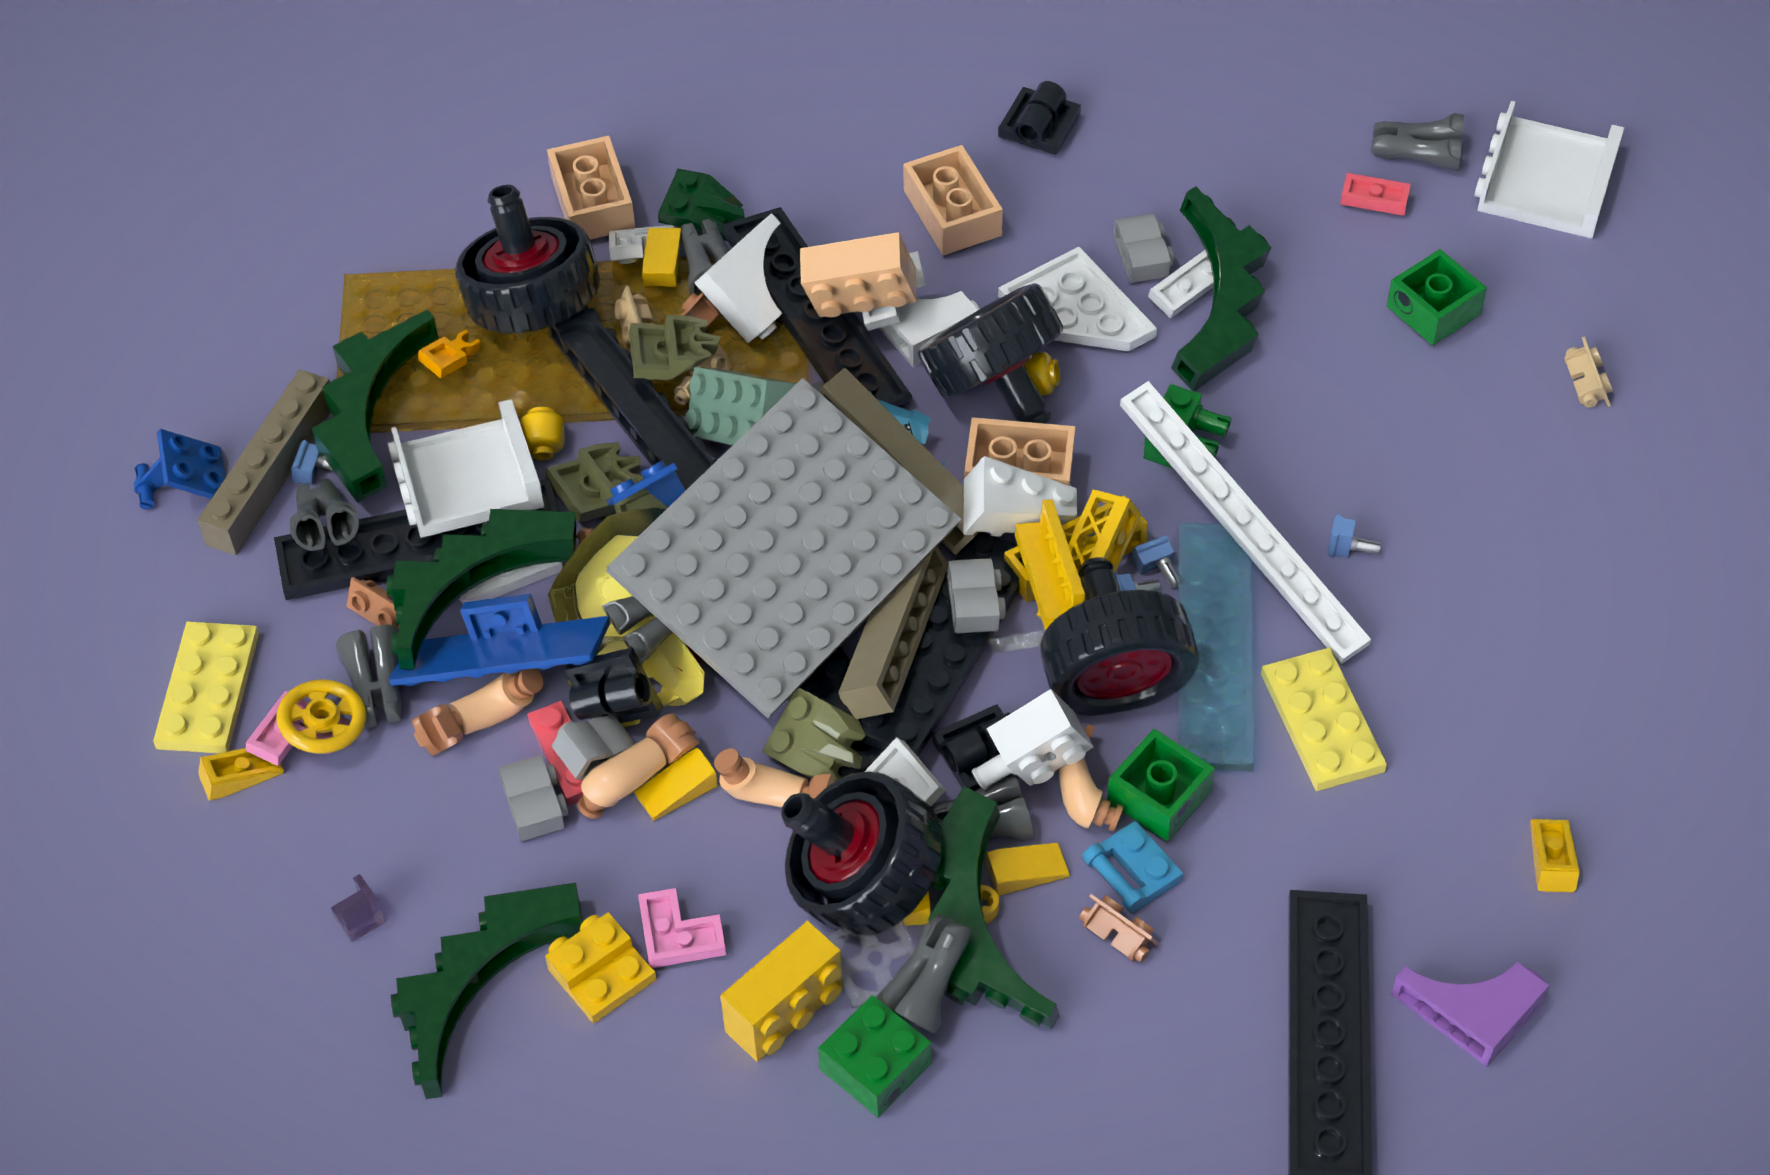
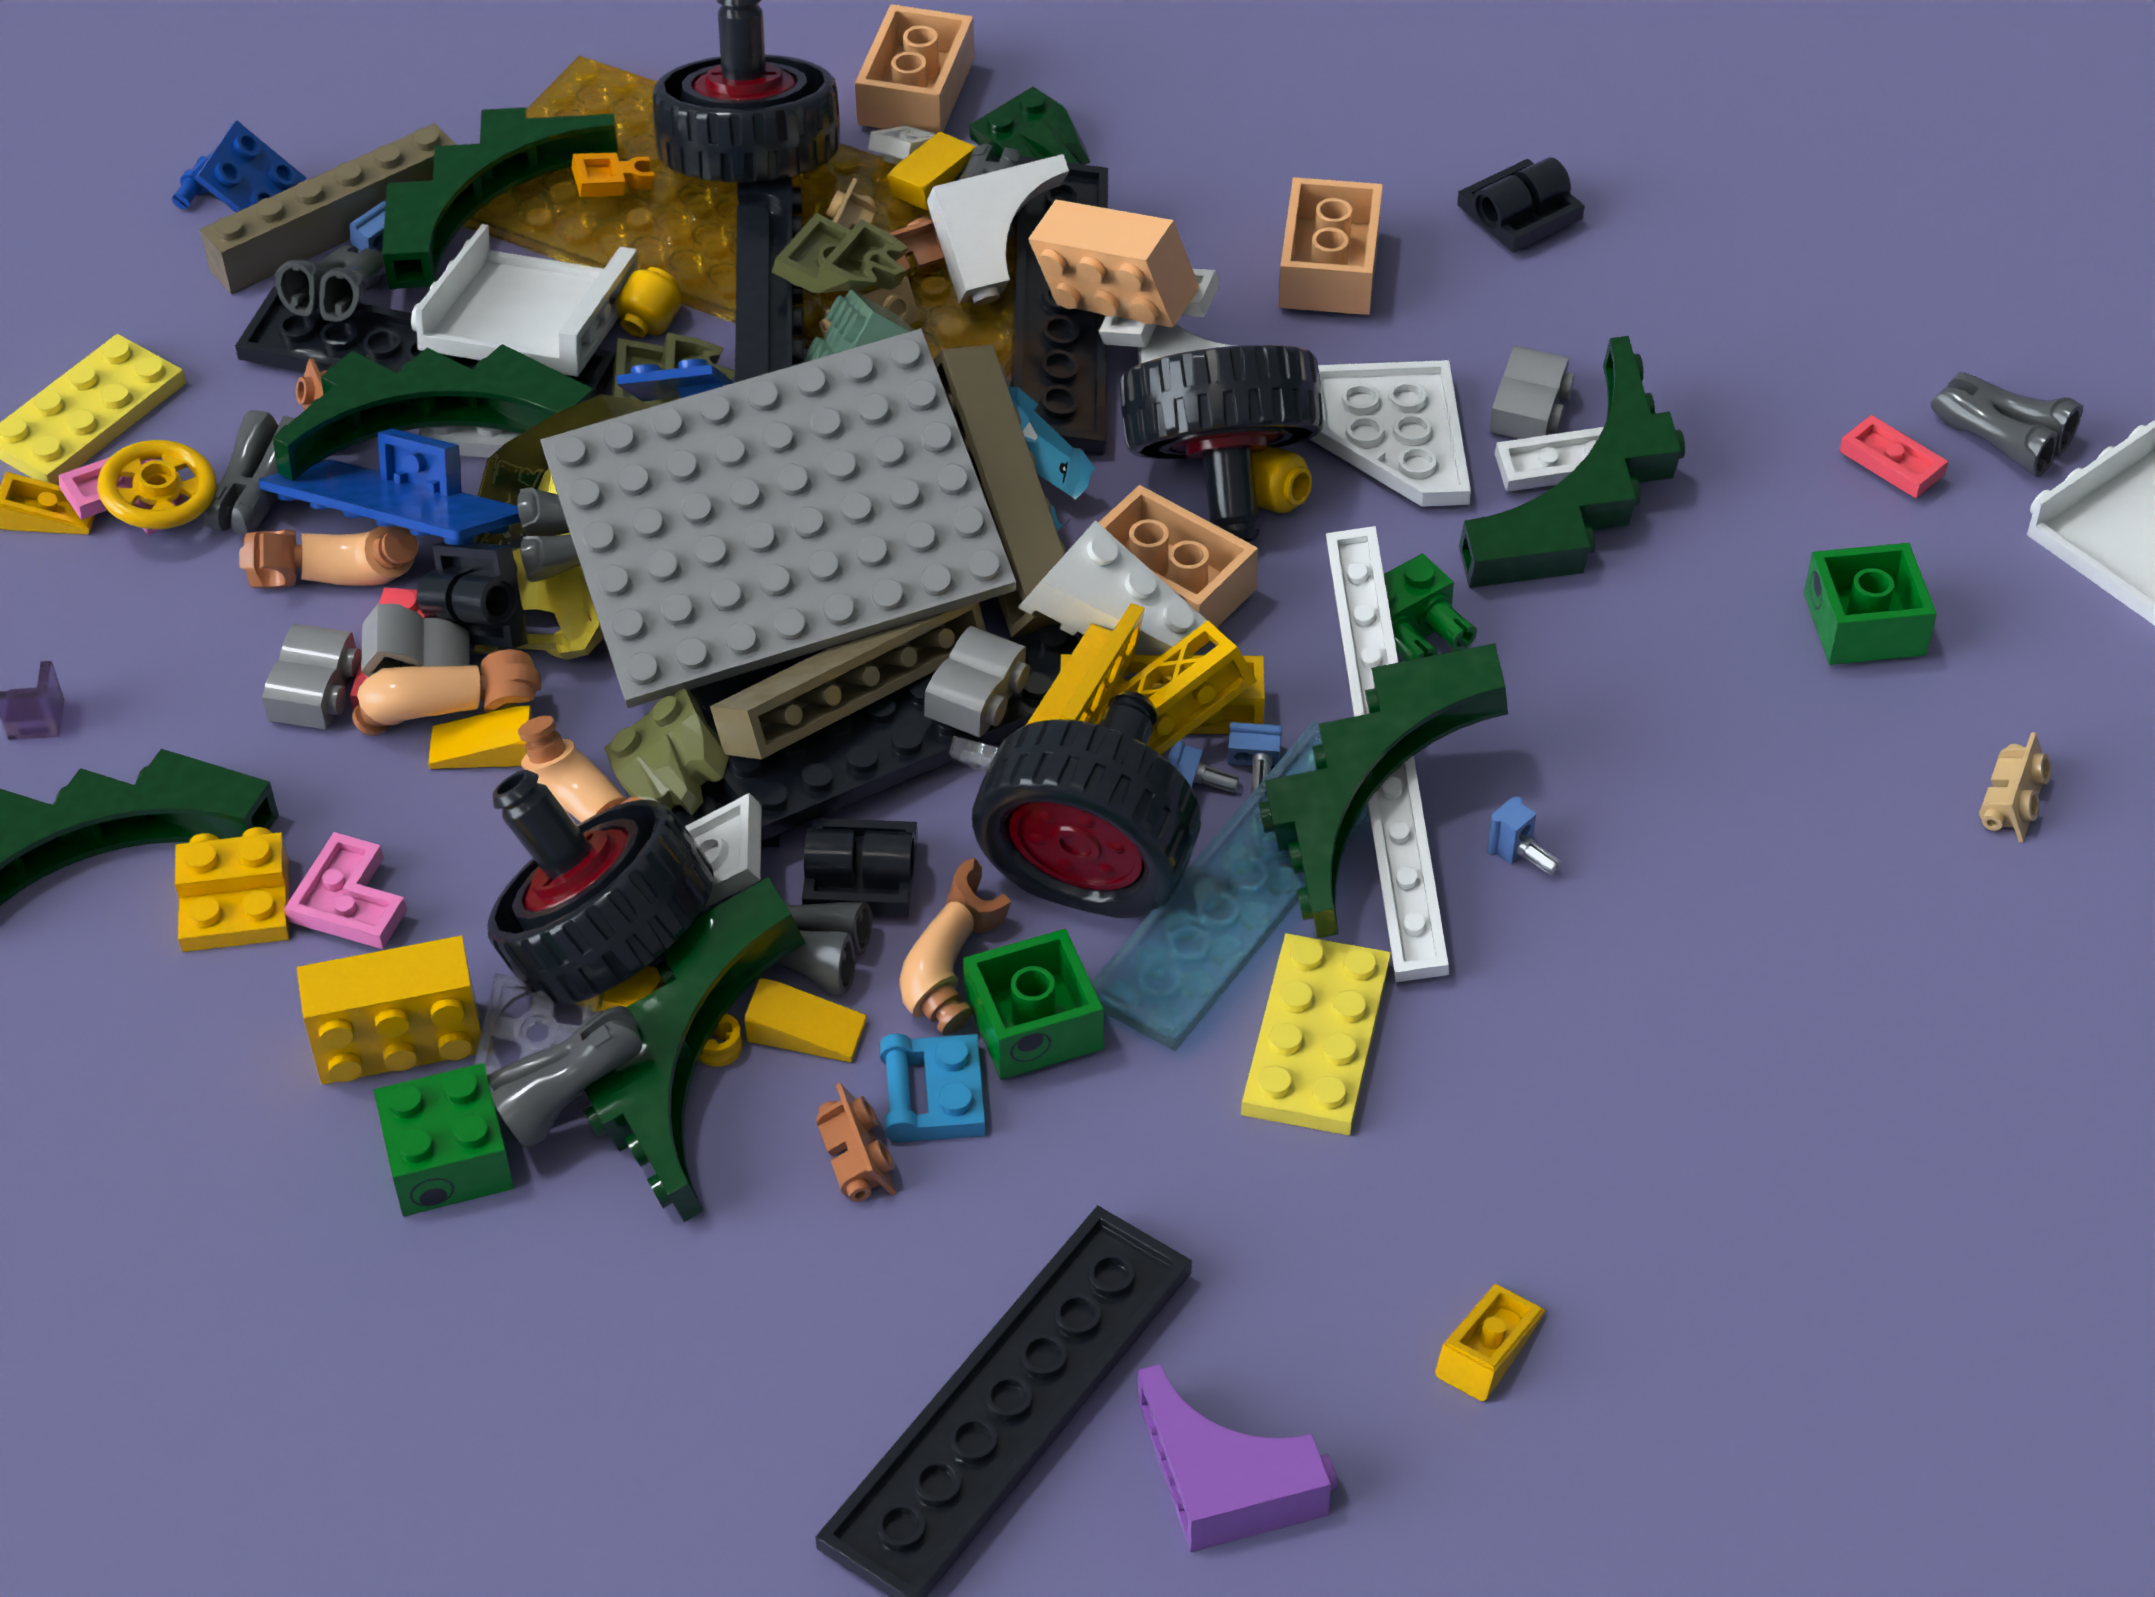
camera: 30 degrees right, 5 degrees down
(1034, 742) = (899, 868): white brick -> none
(1239, 580) = (1408, 711): none -> dark green arch

